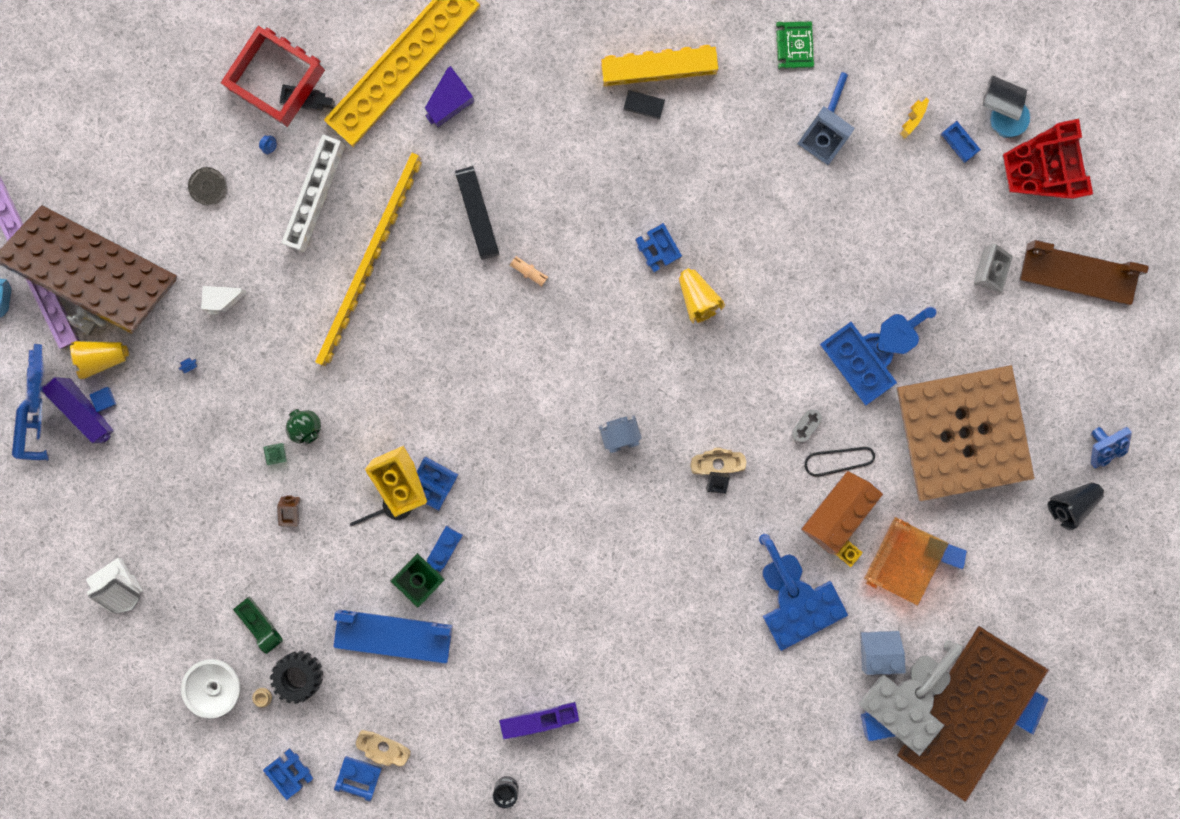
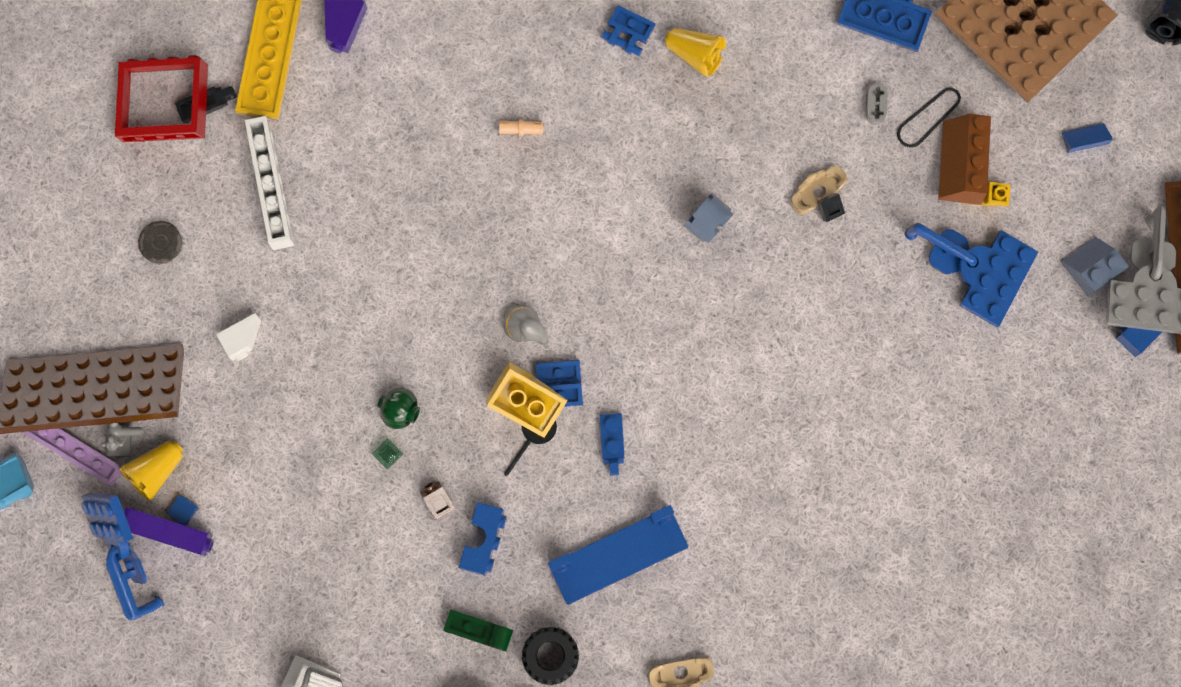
camera: 25 degrees left, 10 degrees down
(187, 365) = (247, 422): blue plate -> none
(267, 144) = (195, 166): blue plate -> none
(316, 551) = (479, 559): none -> blue arch
(373, 252) = (363, 220): yellow plate -> none
(417, 580) = (607, 482): dark green slope -> none
(434, 424) = (524, 325): none -> light grey hair
(477, 212) = (437, 104): black beam -> none
(505, 792) = (831, 634): black wheel -> none
(539, 720) = (815, 542): dark purple slope -> none
(902, 559) = (1051, 166): clear orange door -> none

